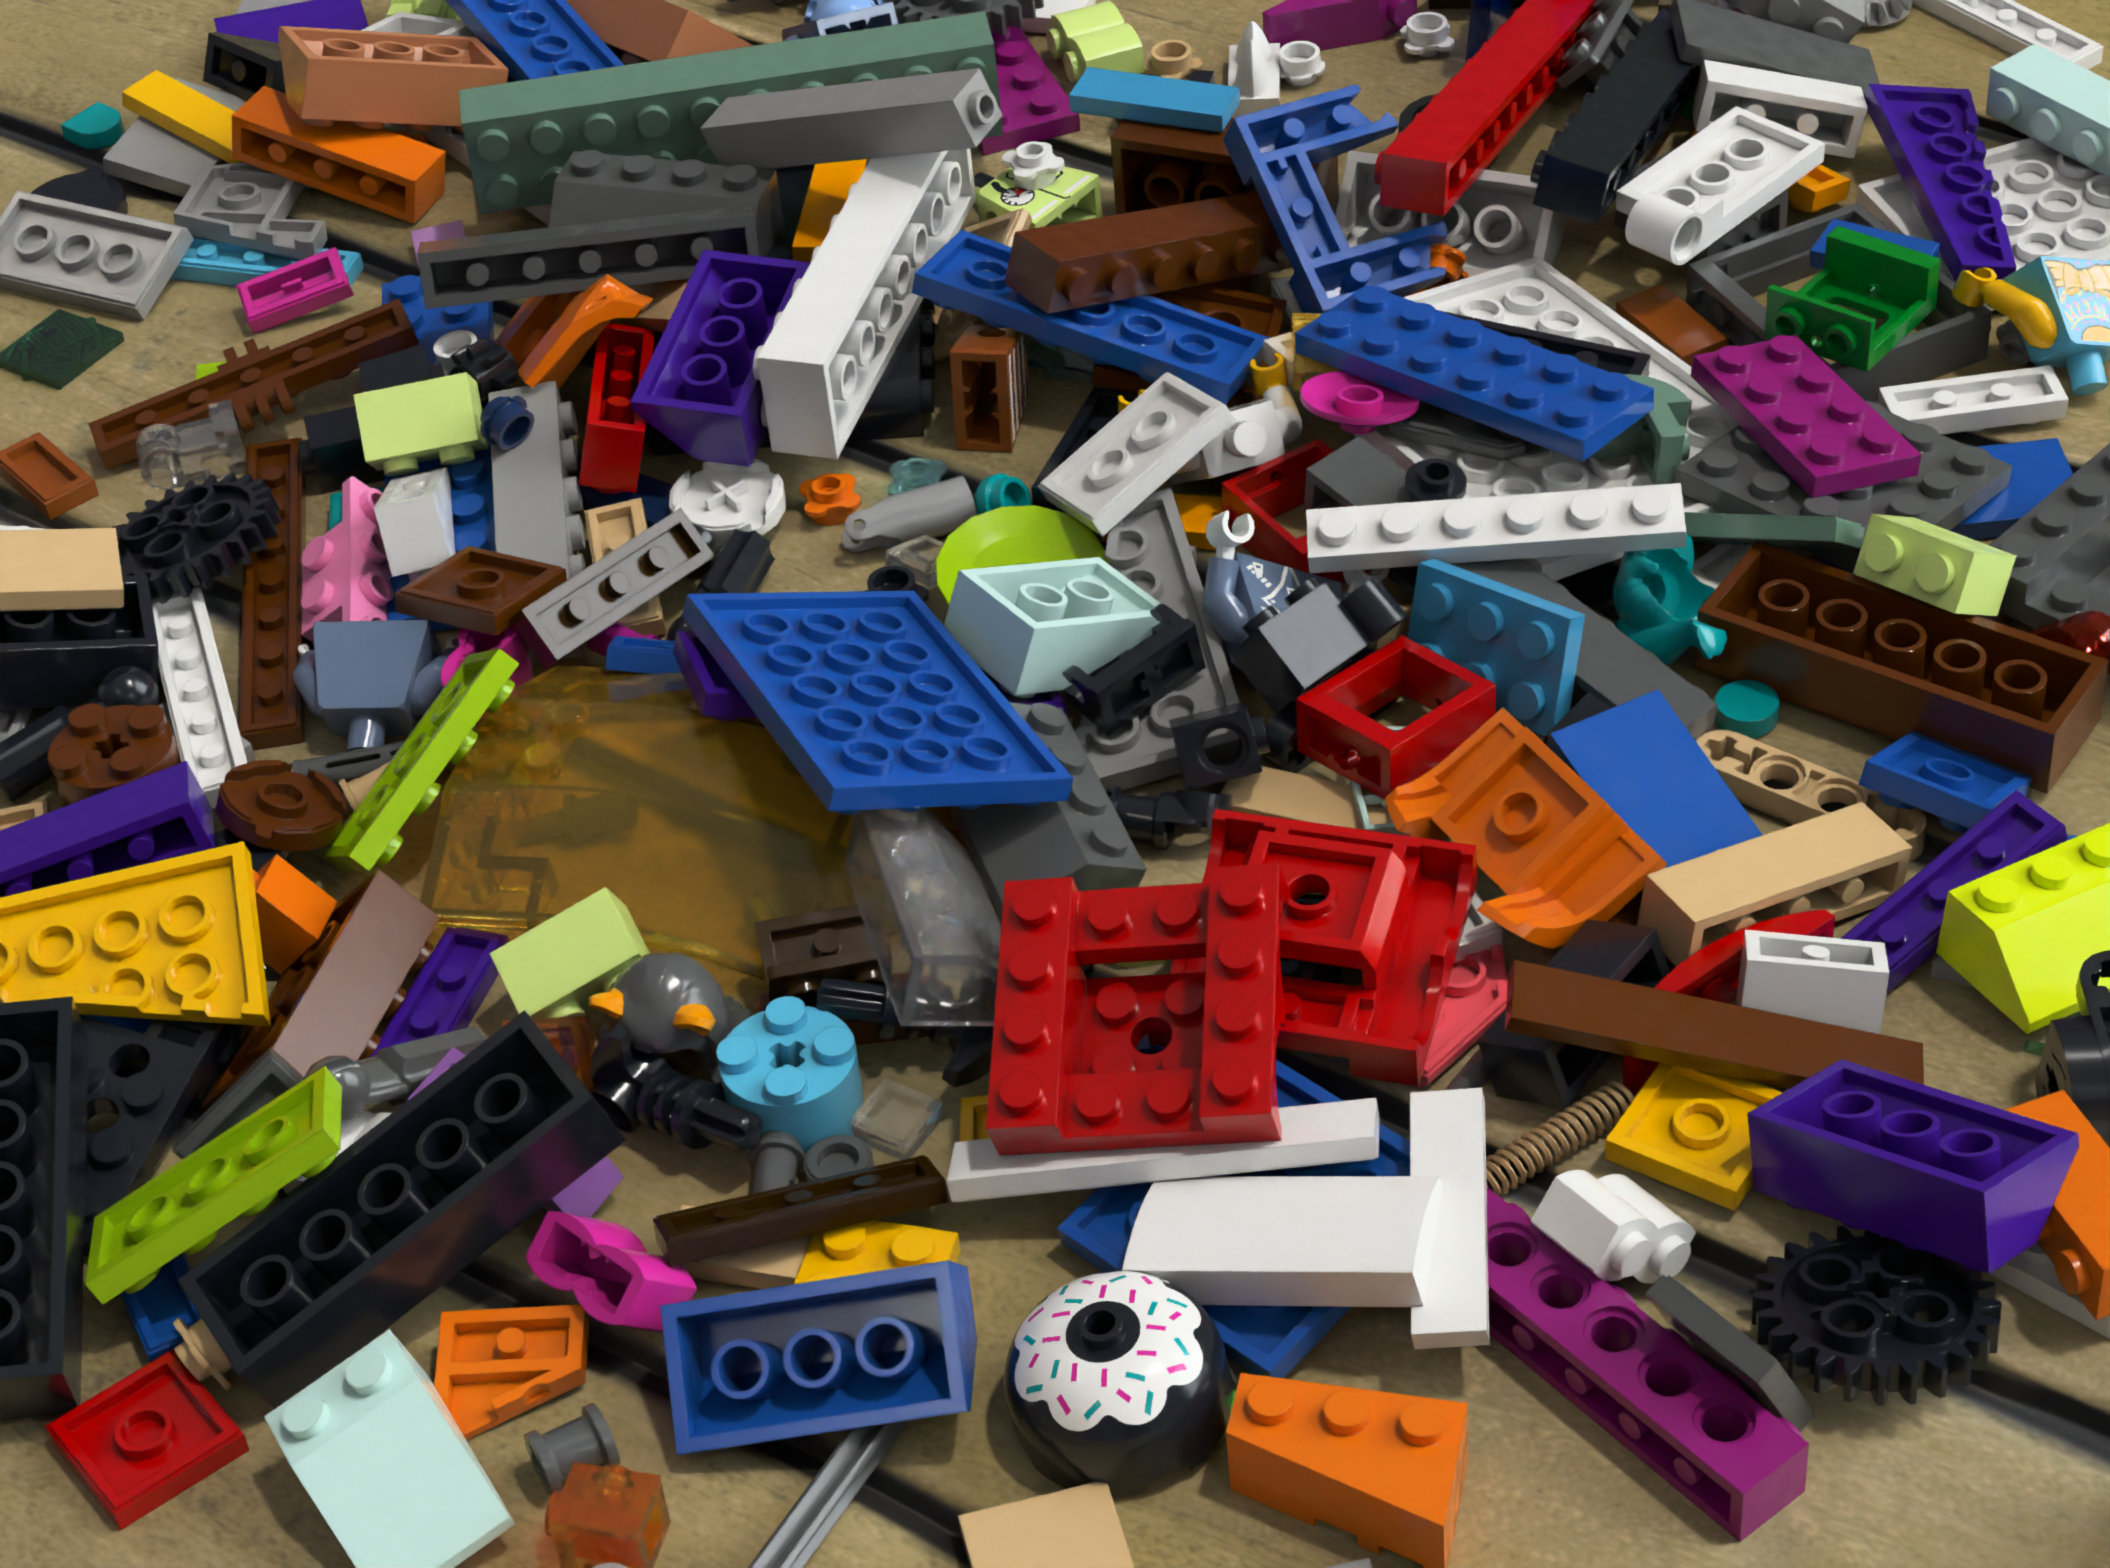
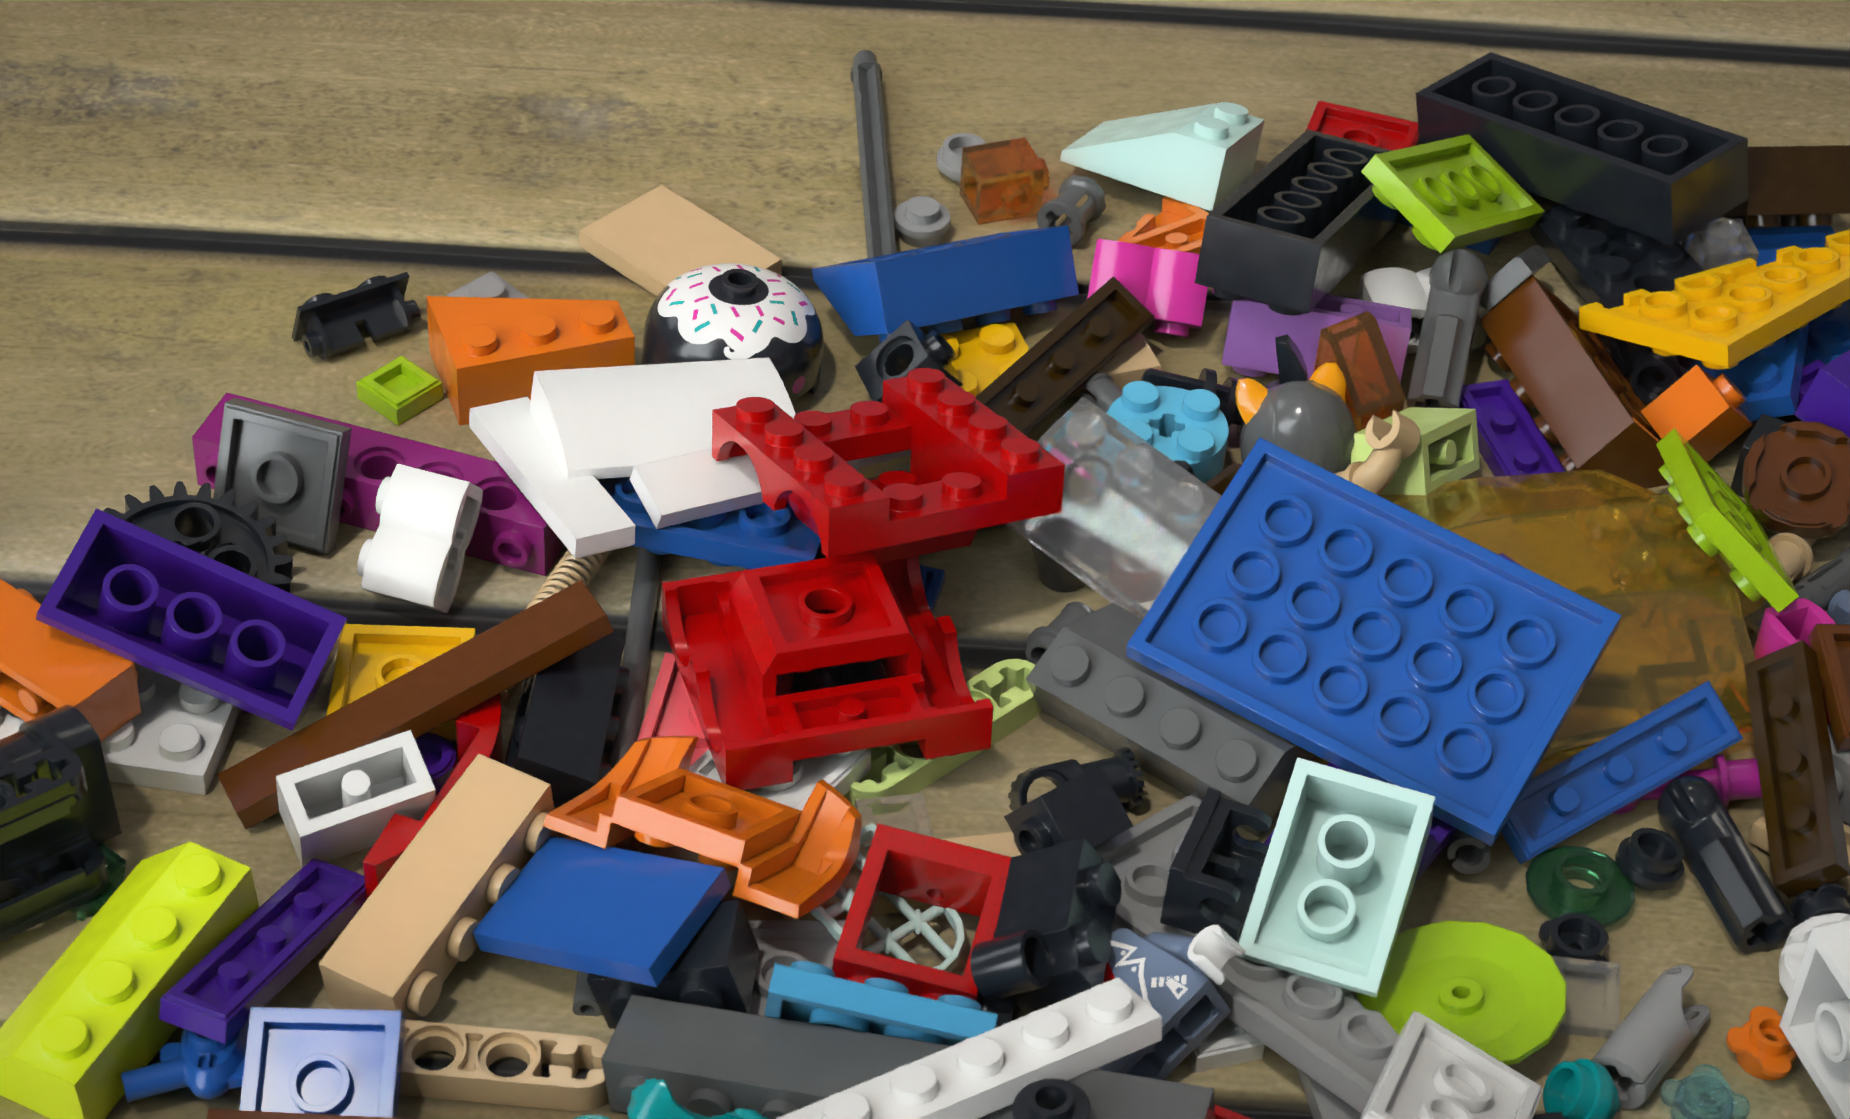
camera: 140 degrees right, 0 degrees up
(677, 913) = (1389, 447): none -> tan piece
(742, 1522) = (921, 221): none -> light grey plate
(975, 1237) = (902, 352): none -> black brick
(1515, 1518) = (399, 390): none -> lime tile

